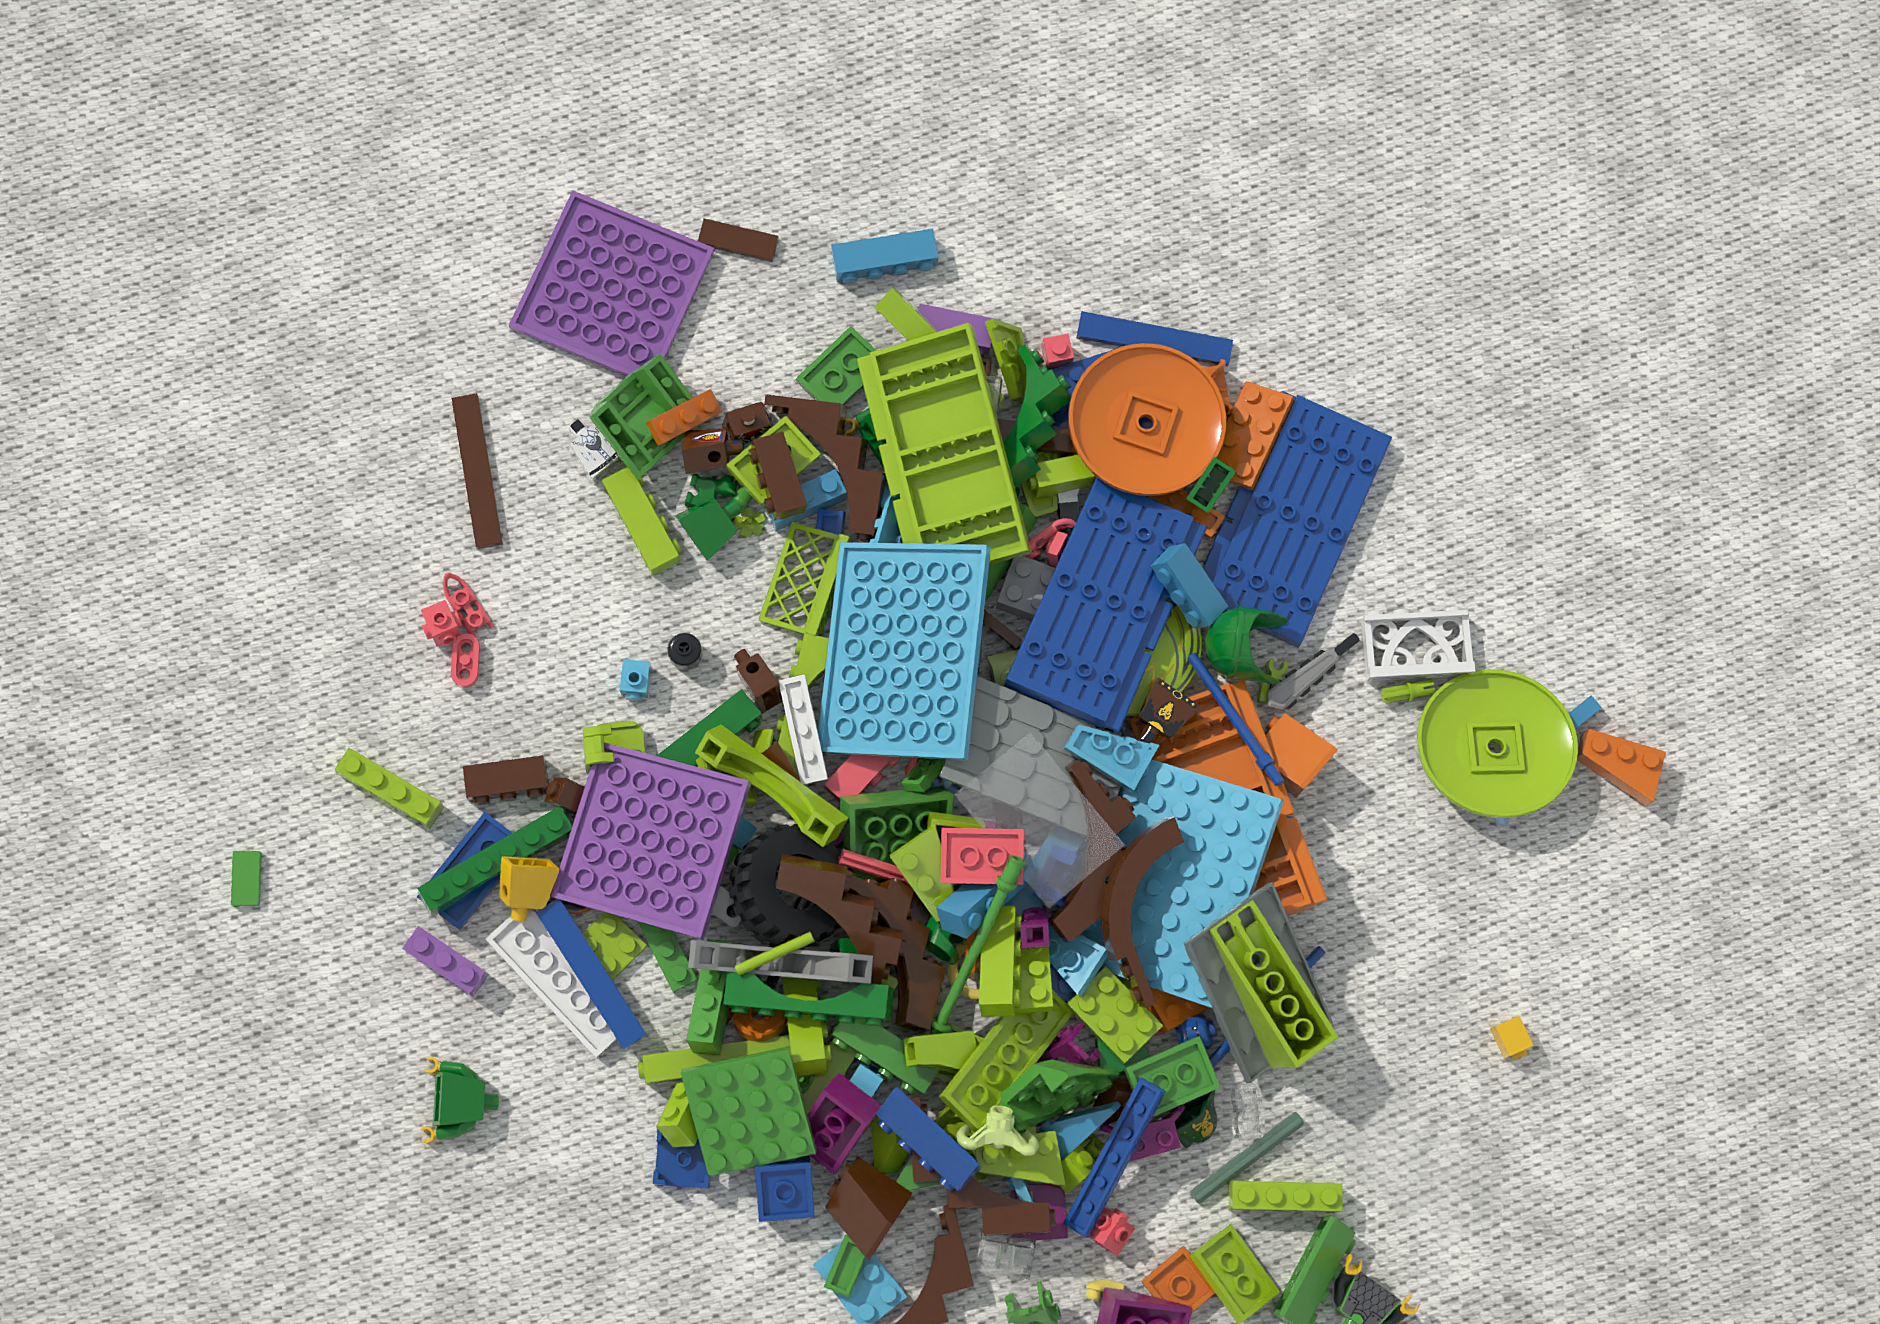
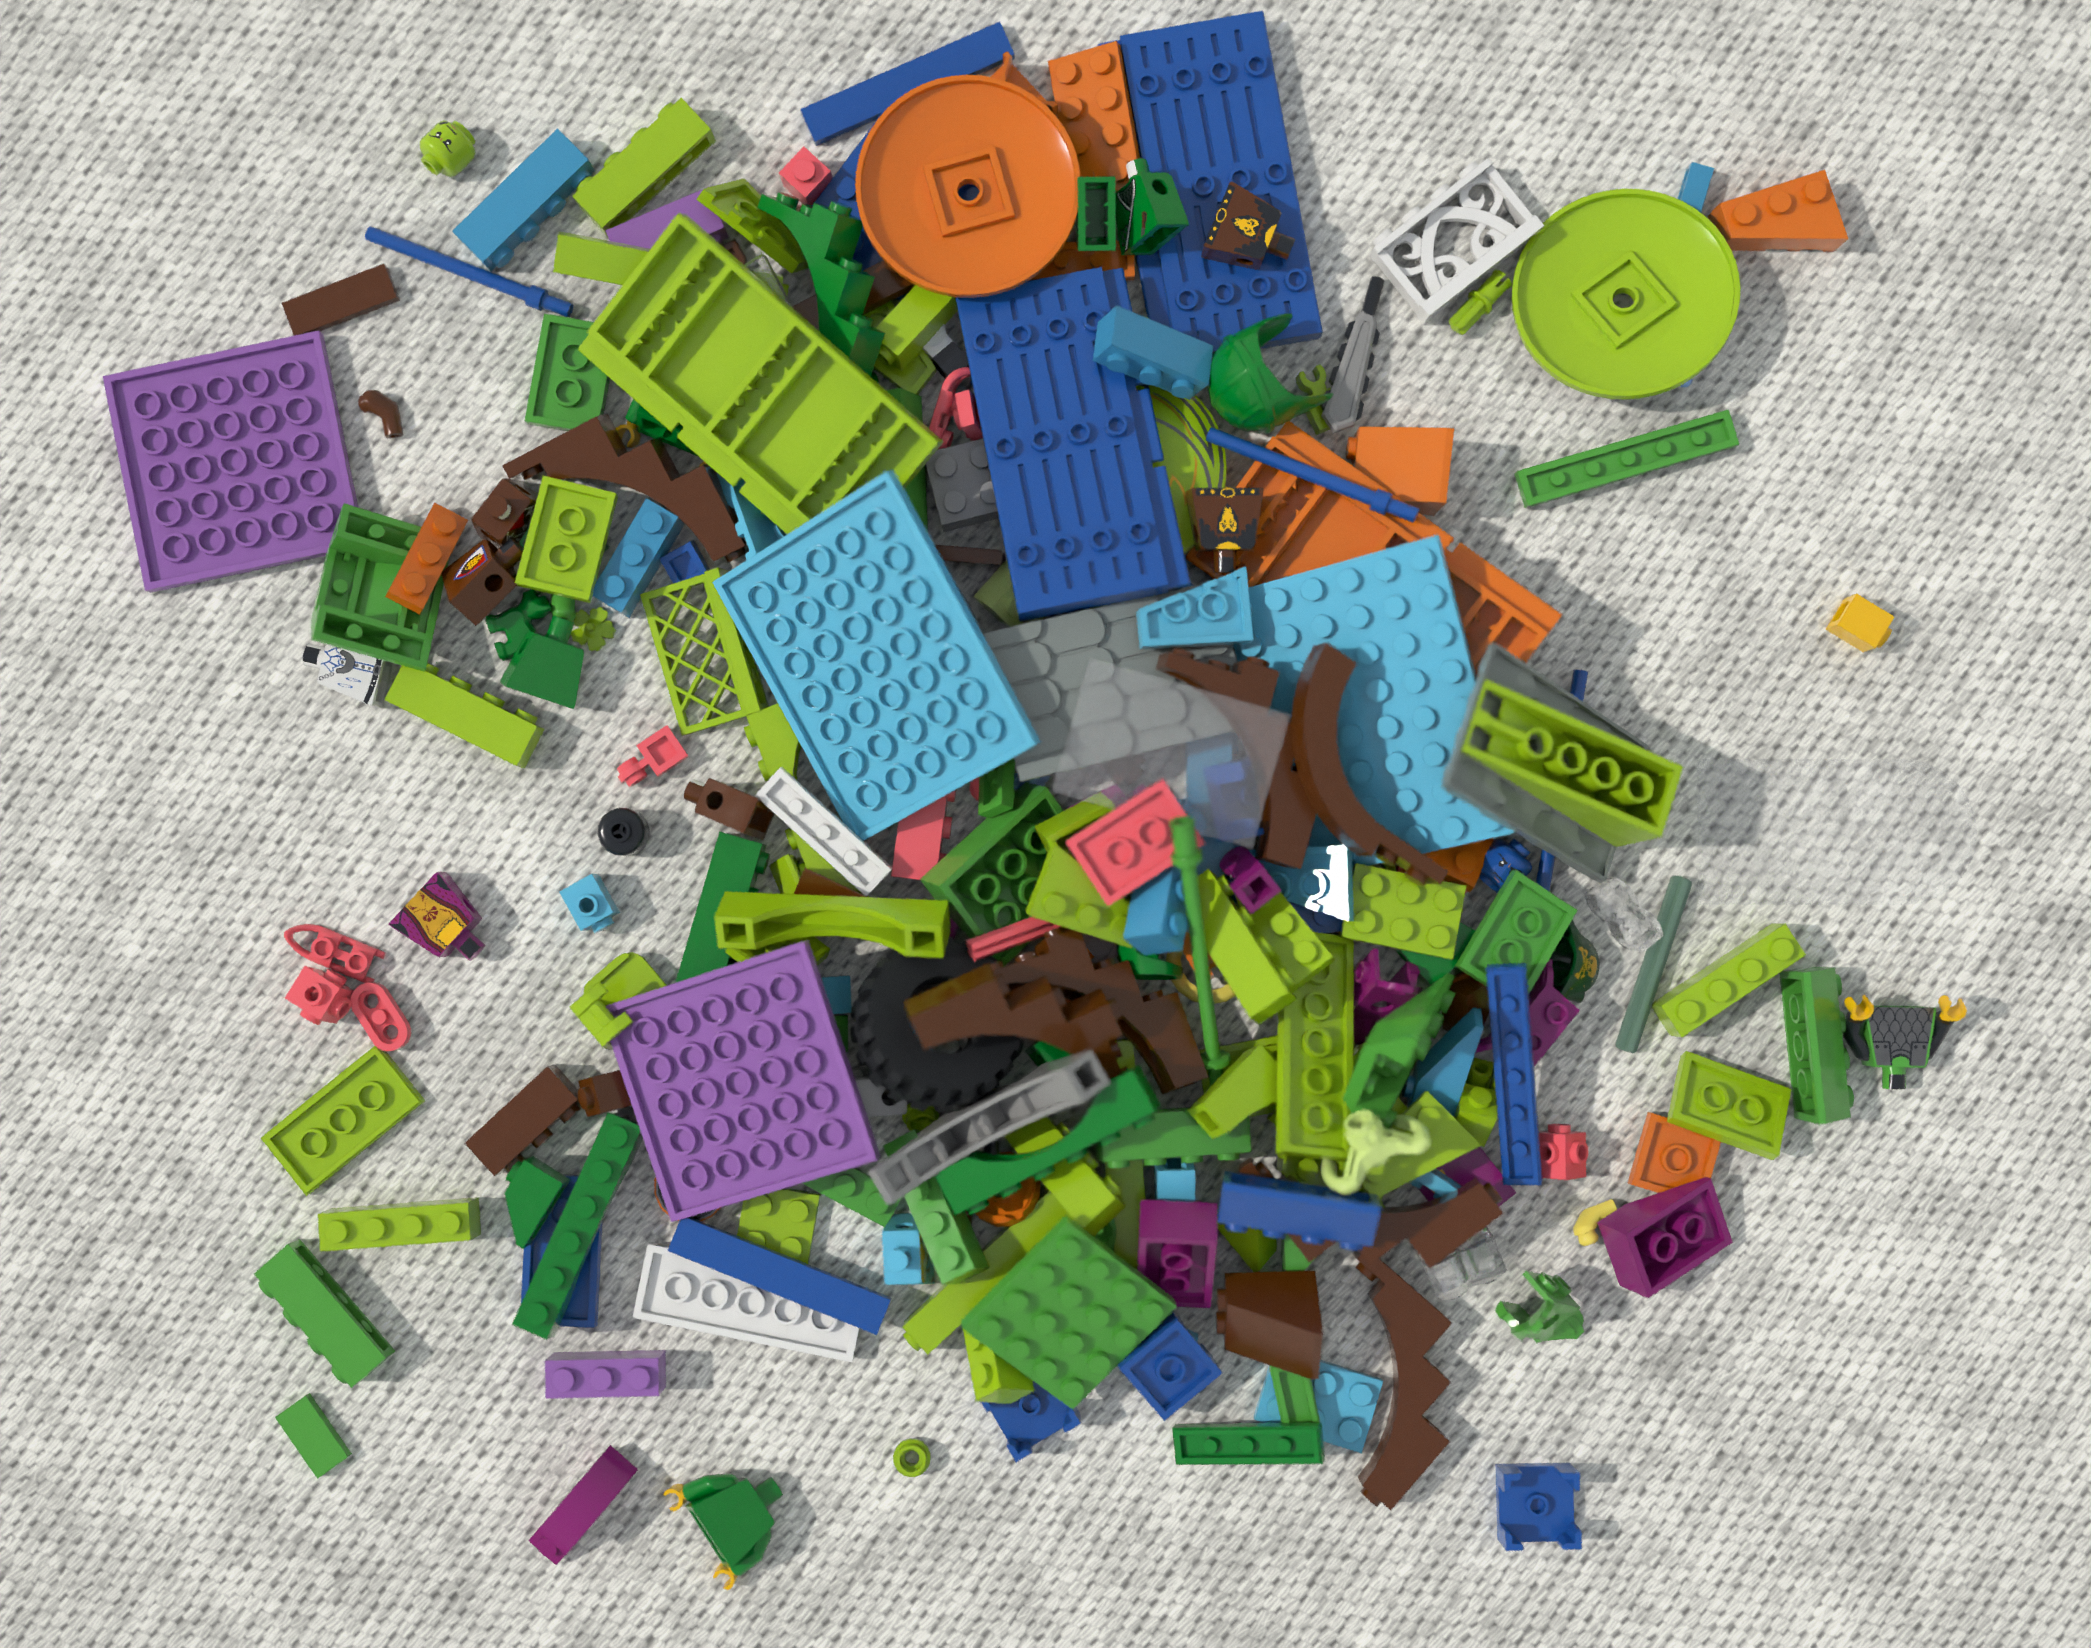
camera: 25 degrees left, 10 degrees up
(306, 810) = (323, 1313): none -> bright green brick
(374, 1029) = (583, 1505): none -> magenta arch
(399, 705) = (342, 1119): none -> lime tile
(477, 471) = (234, 787): reddish brown tile -> none
(479, 825) = (531, 1197): none -> green slope
(526, 884) = (633, 1228): yellow torso -> none
(541, 628) = (440, 919): none -> torso
(583, 1135) = (911, 1469): none -> lime plate
(674, 1015) = (905, 1253): none -> medium azure torso
(720, 316) = (384, 407): none -> reddish brown arm
(738, 620) = (659, 750): none -> coral plate
(741, 936) = (919, 1119): none -> lime plate
(774, 953) = (974, 1119): lime bar -> none
(777, 476) = (583, 555): reddish brown brick -> none
(799, 1274) = (1248, 1443): none -> green tile
(851, 312) = (533, 296): none -> blue bar
(861, 197) = (447, 148): none -> lime head
(968, 282) = (644, 166): none -> lime brick
(1243, 503) = (1147, 210): none -> green torso
(1293, 554) = (1245, 231): none -> torso
(1435, 842) = (1626, 458): none -> bright green plate

